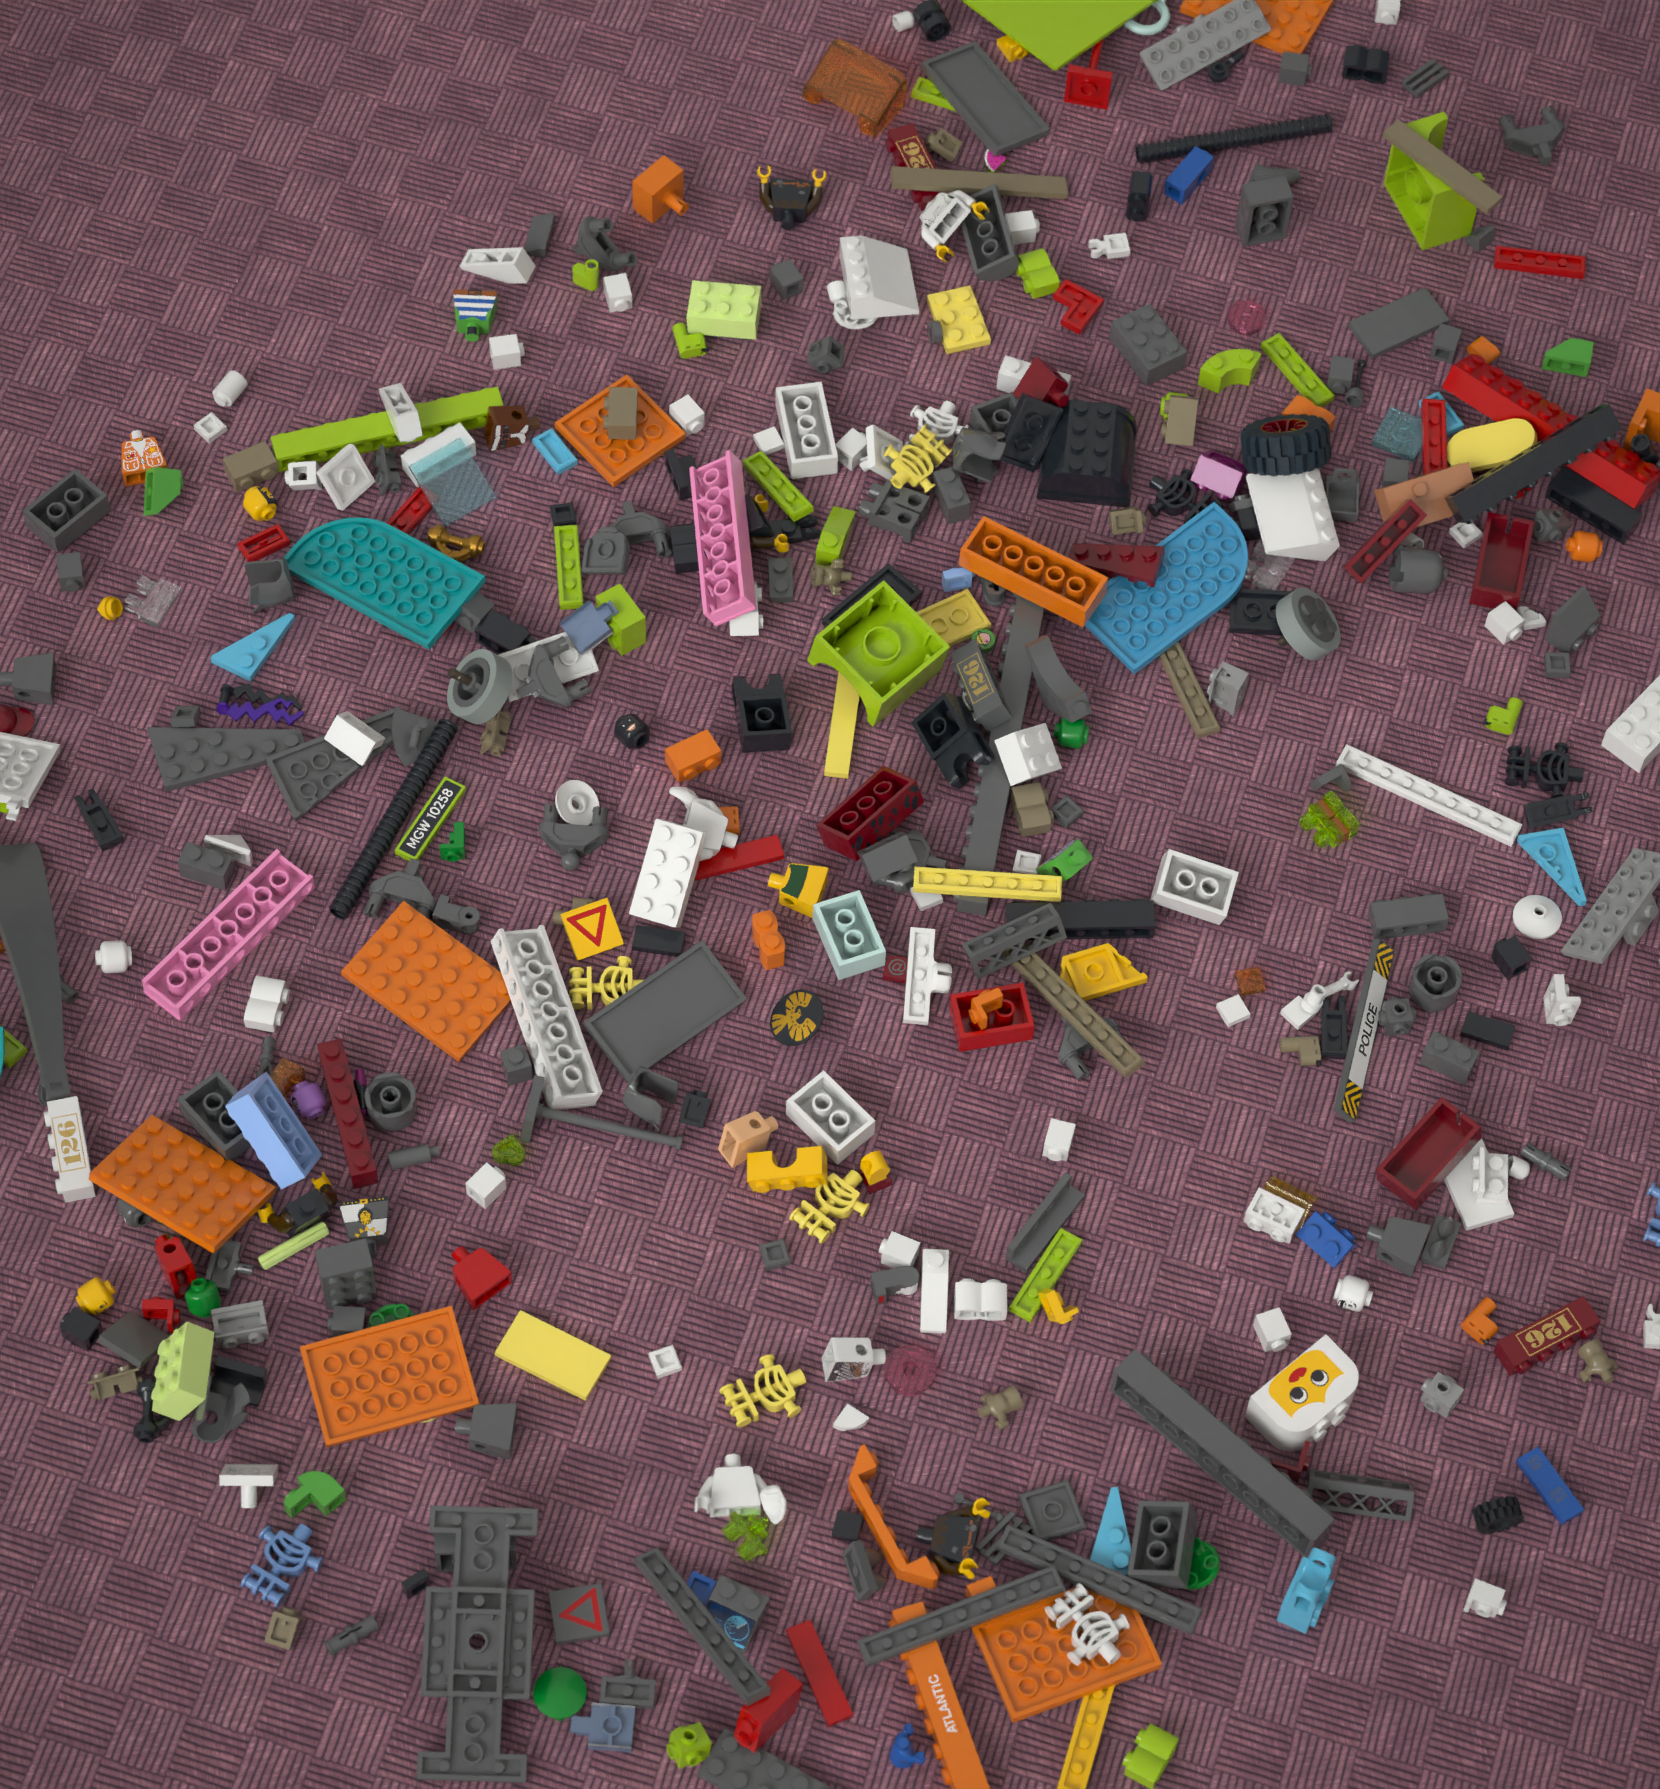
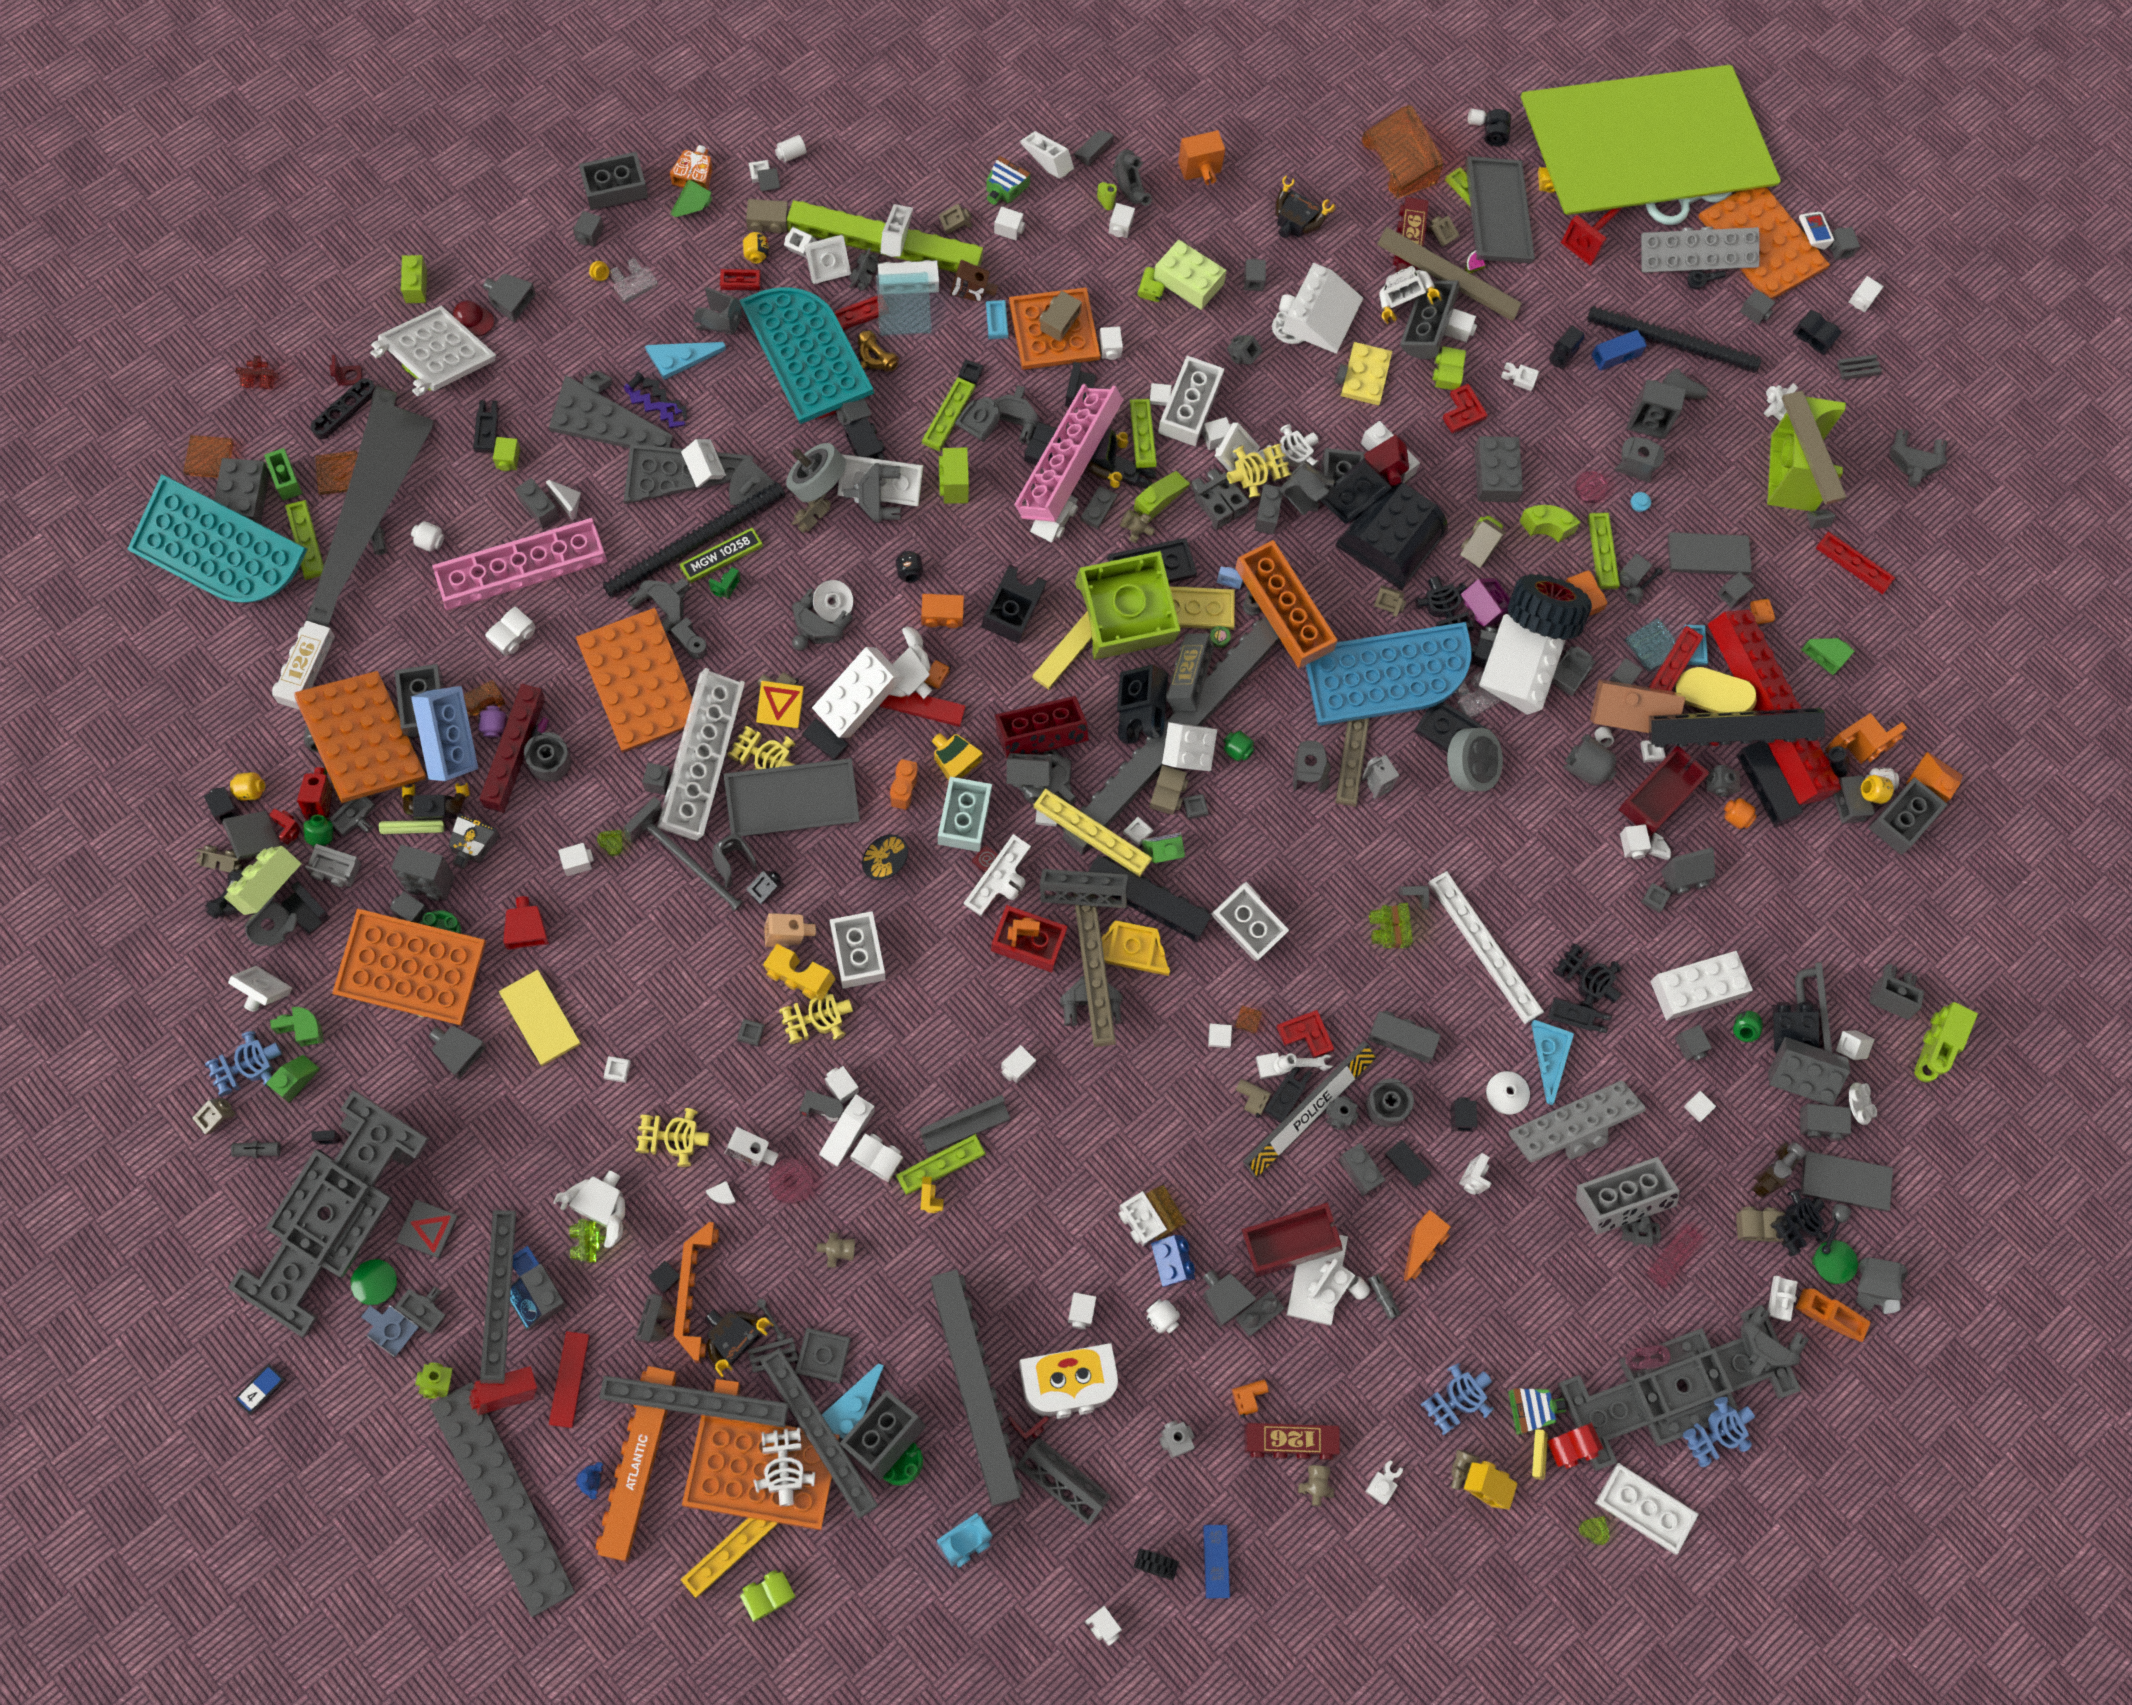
camera: 25 degrees right, 10 degrees up
(139, 834) = (506, 454): none -> lime brick
(226, 430) = (768, 179): none -> dark grey tile
(266, 1058) = (486, 673): dark grey piece -> none
(341, 1549) = (292, 1077): none -> bright green slope
(412, 1156) = (538, 806): dark grey cylinder -> none
(446, 373) = (955, 218): none -> dark tan bracket
(588, 625) = (923, 468): sand blue piece -> none
(875, 1172) = (863, 1012): yellow leg -> none
(1055, 686) = (1247, 700): dark grey arch -> none
(1127, 561) = (1368, 634): dark red wing -> none
(1153, 719) = (1315, 773): none -> dark grey piece
(1278, 273) = (1639, 466): none -> dark grey piece
(1302, 307) = (1640, 502): none -> medium azure plate
(1315, 957) = (1309, 1028): none -> red plate
(1370, 145) = (1775, 398): none -> white hips
(1384, 541) = (1578, 725): dark red brick -> none
(1503, 719) = (1584, 919): lime piece -> none
(1548, 1090) = (1423, 1240): none -> orange slope

